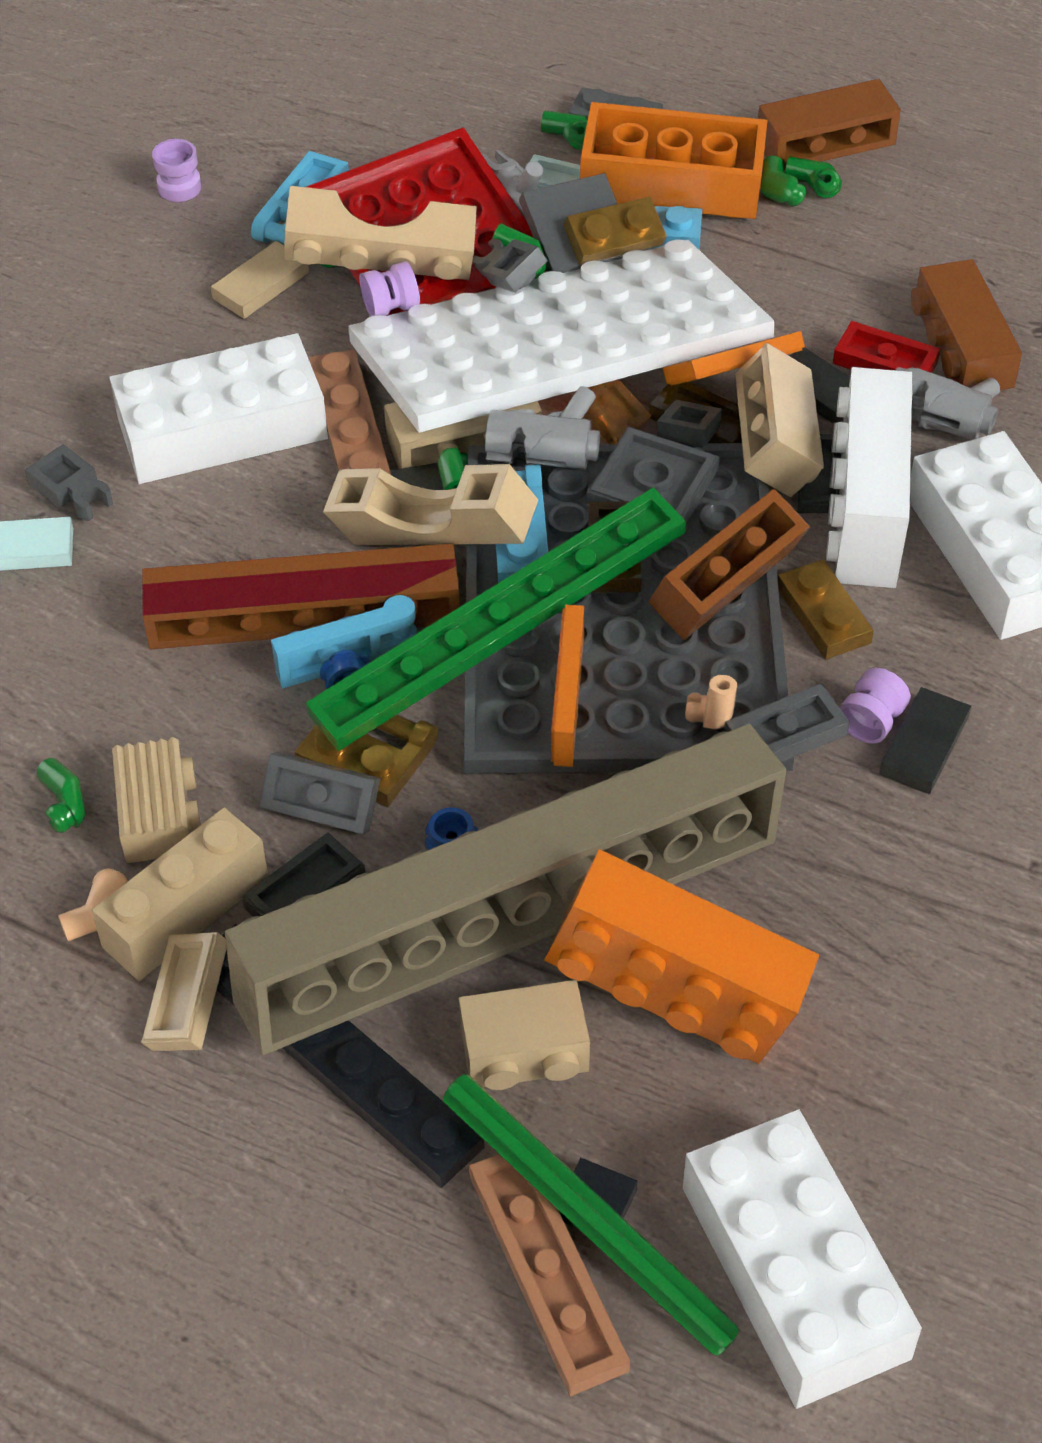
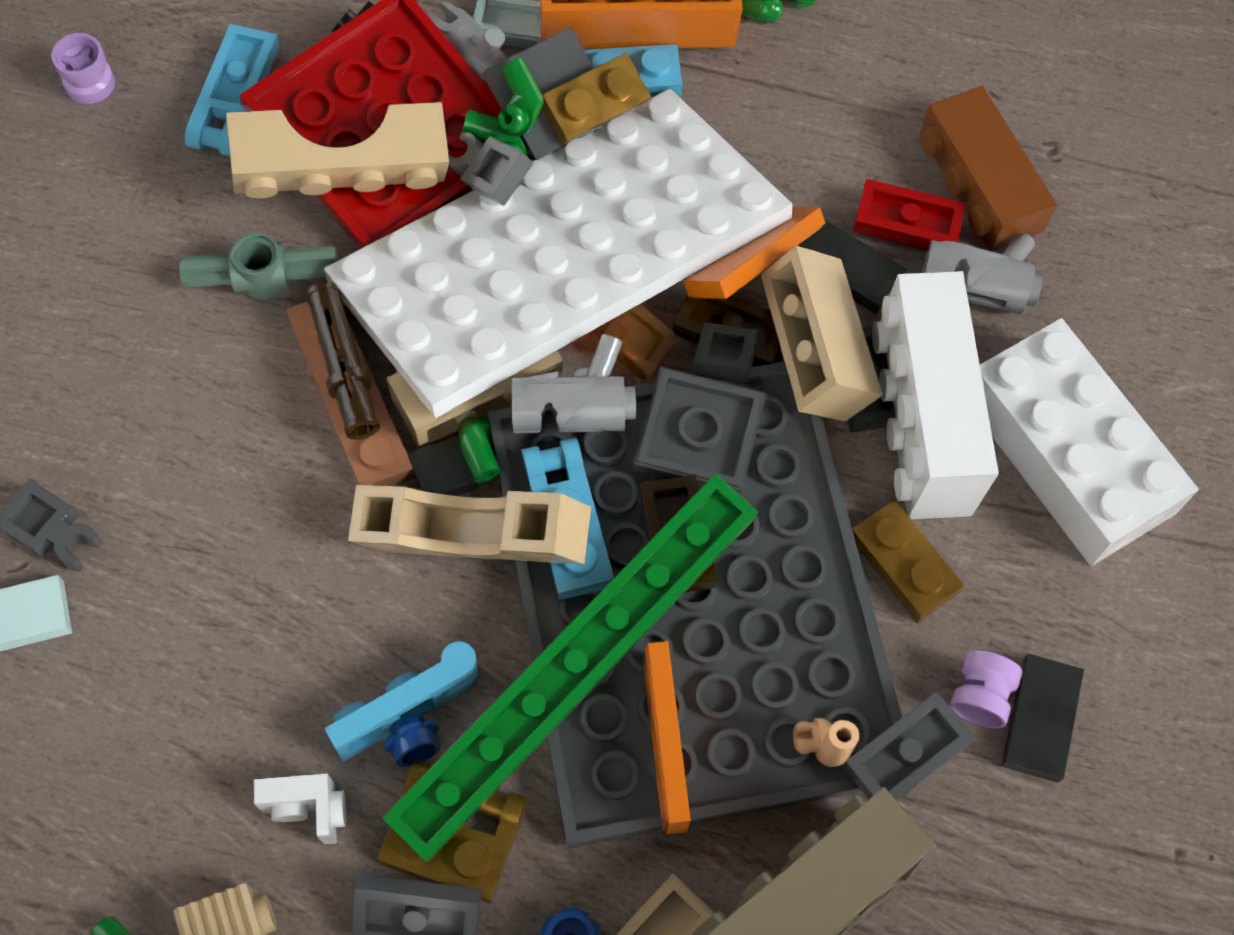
camera: 15 degrees left, 15 degrees up
(219, 408) = (197, 400): white brick -> none
(239, 694) = (293, 796): none -> white bracket
(258, 281) = (202, 208): tan tile -> none
(288, 315) = (251, 251): none -> sand green axle
(291, 593) = (336, 645): dark orange brick -> none
(351, 422) = (358, 411): none -> dark brown pin
(389, 289) = (362, 219): lavender wheel -> none
(552, 217) = (525, 102): none -> green arm
(728, 564) = (811, 552): dark orange brick -> none

